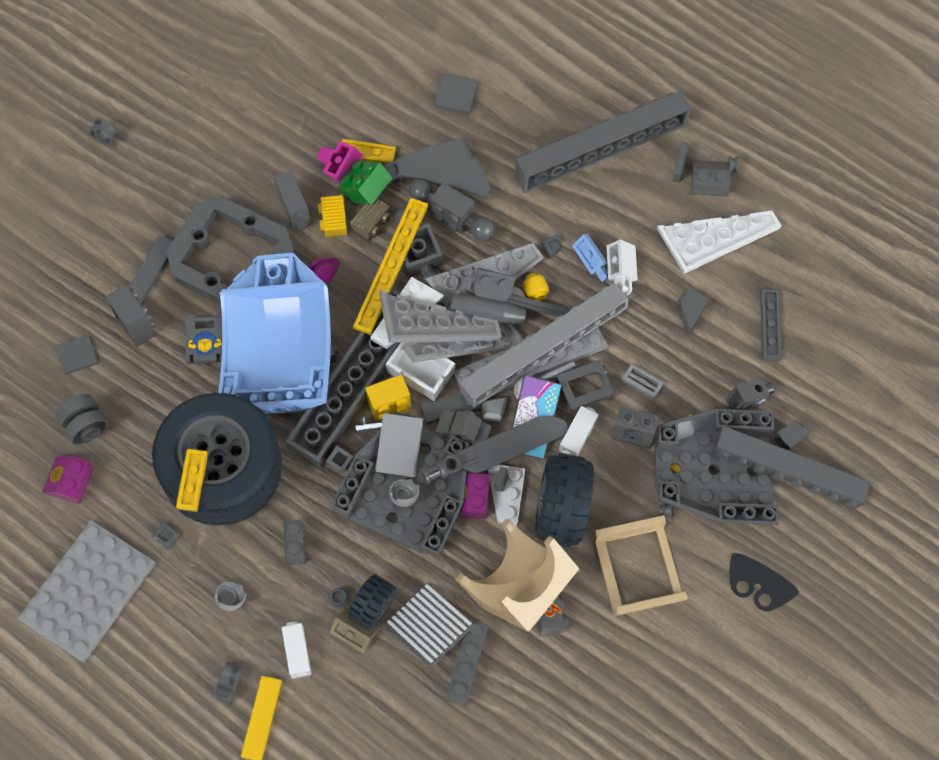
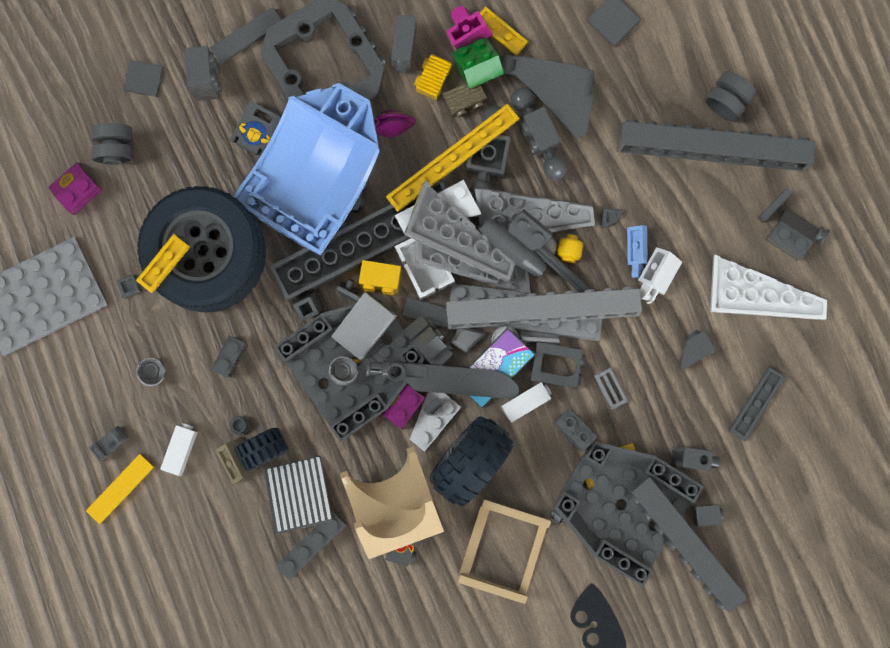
camera: 30 degrees right, 15 degrees up
(589, 97) = (730, 96): none -> dark grey wheel

